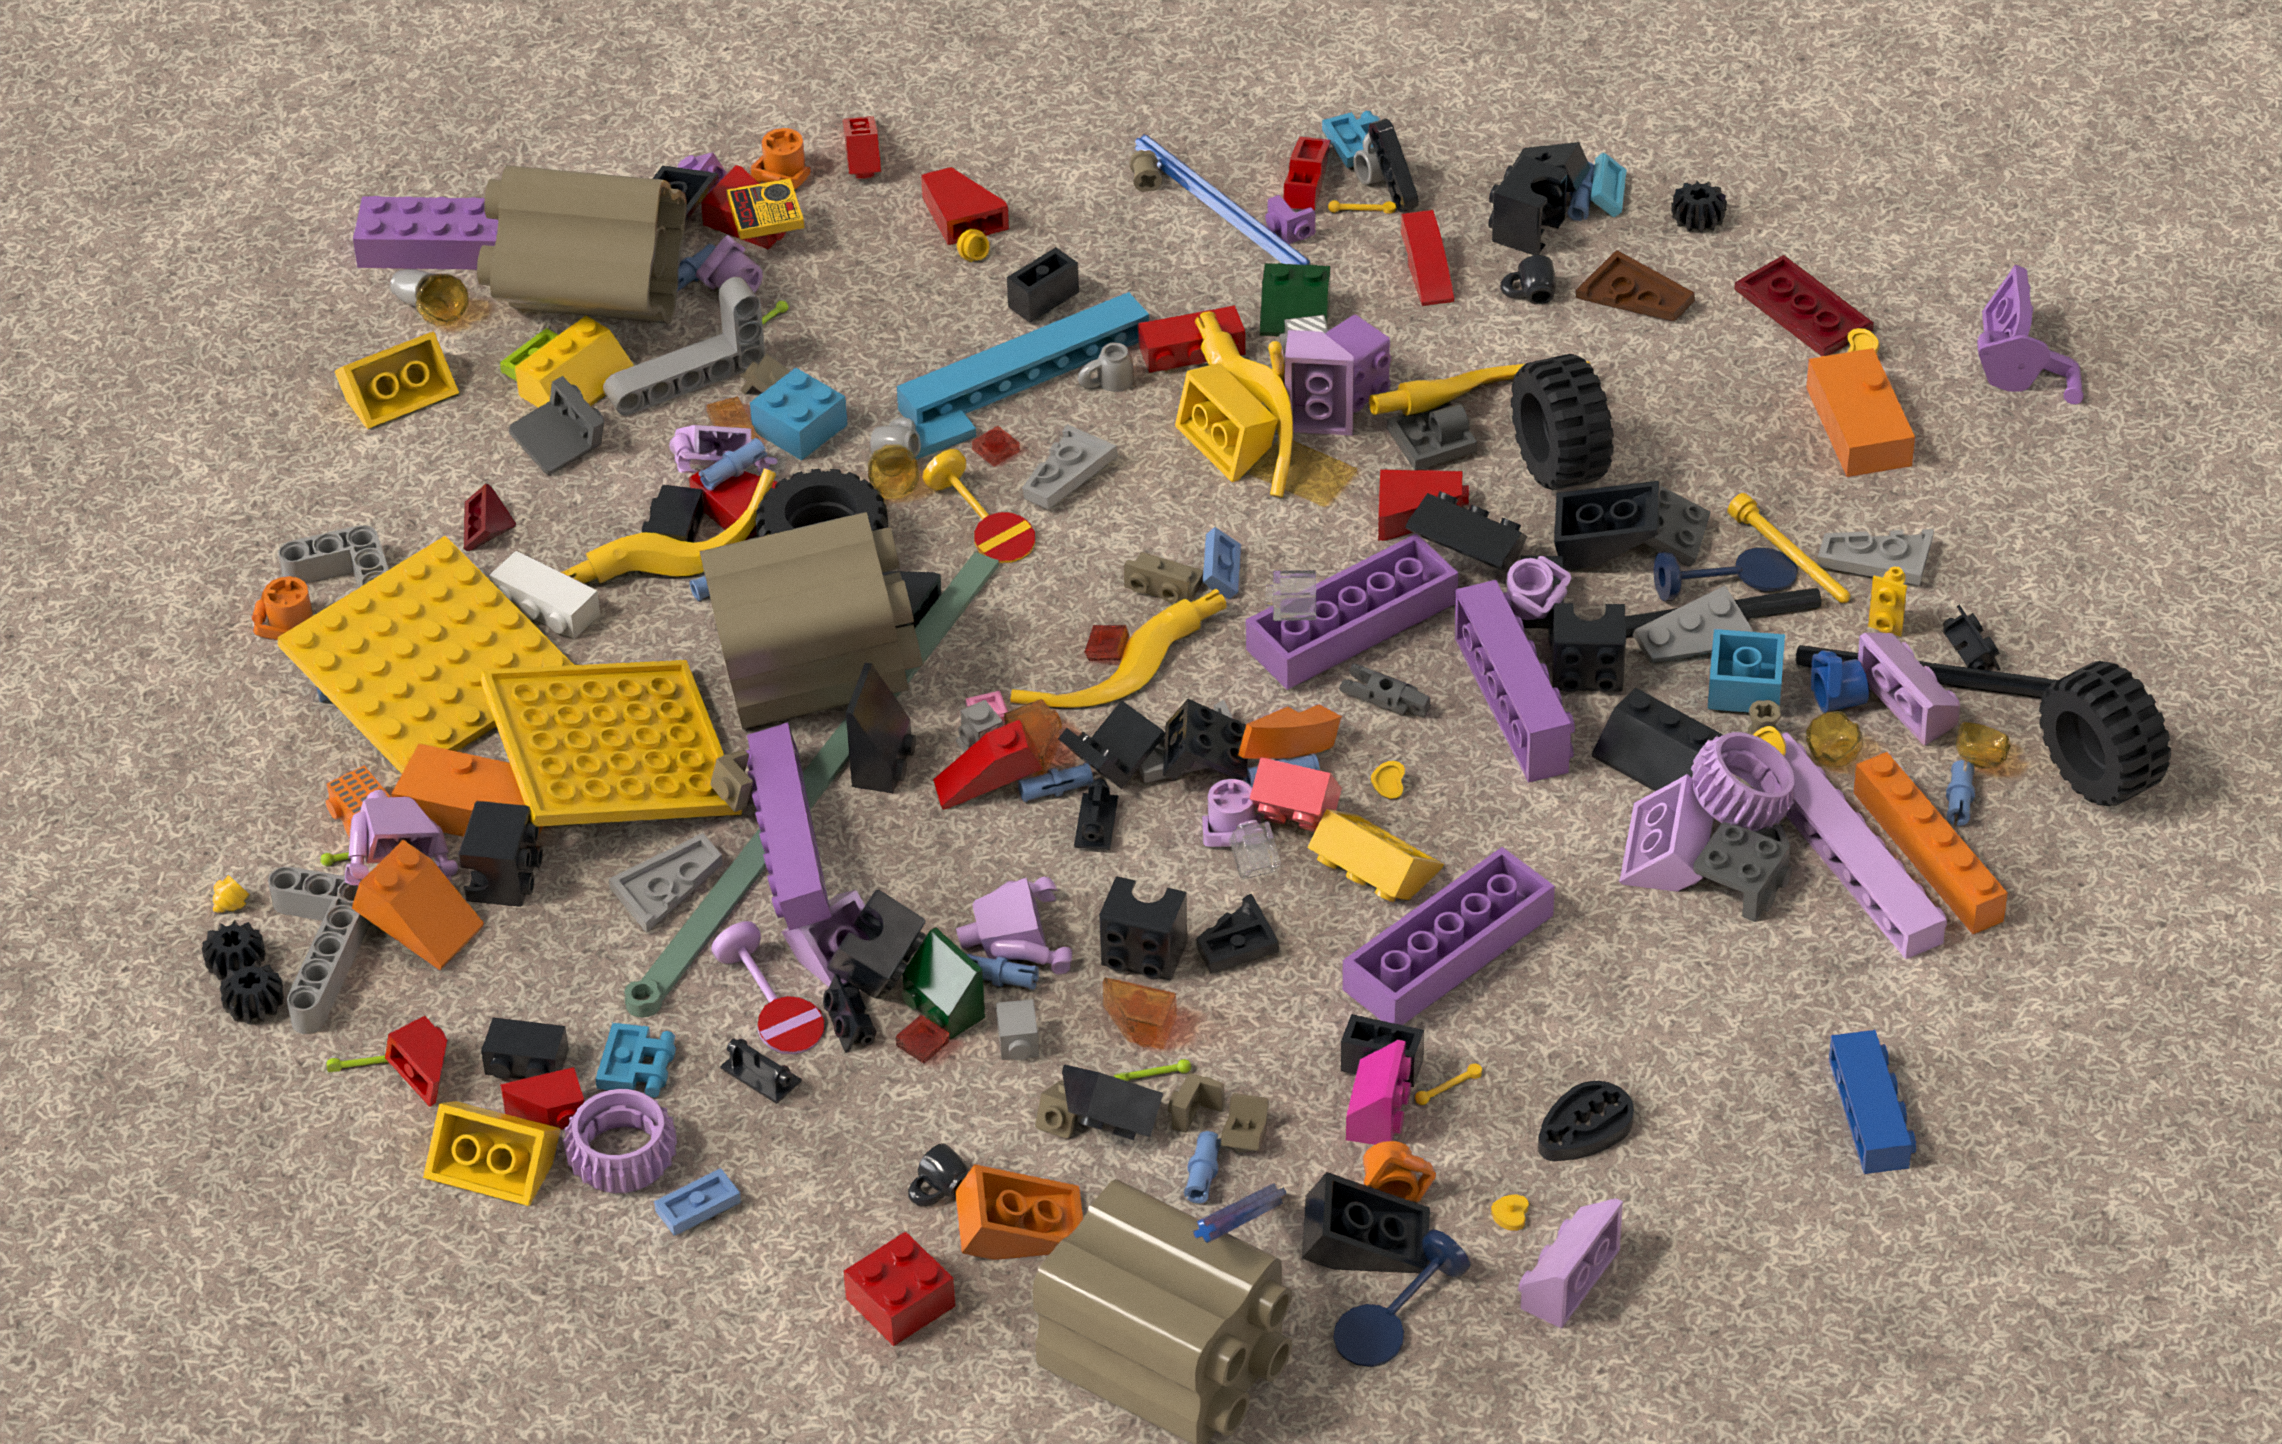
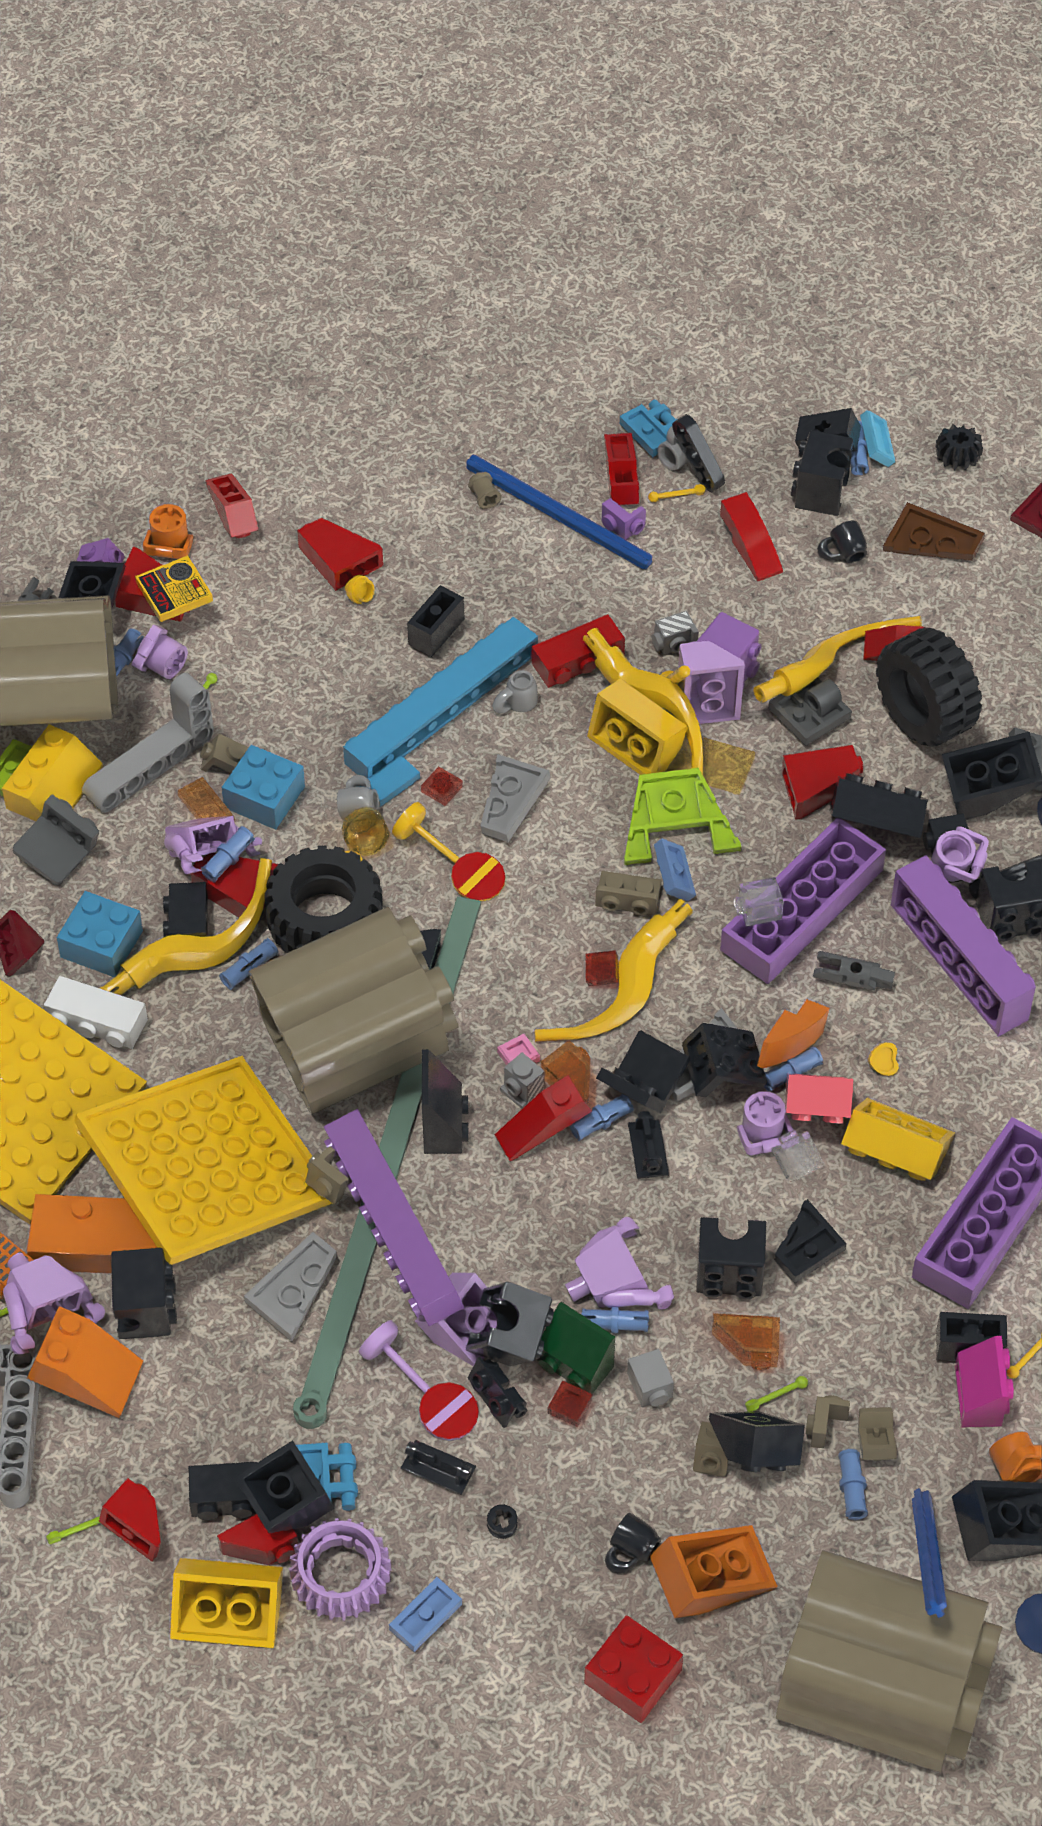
camera: 15 degrees left, 10 degrees up
(573, 521) = (99, 934): none -> dark azure brick
(582, 1052) = (284, 1490): none -> black slope
(810, 1124) = (498, 1531): none -> black bush
(1244, 499) = (672, 803): none -> lime wing
(1292, 293) = (651, 595): dark green slope -> none

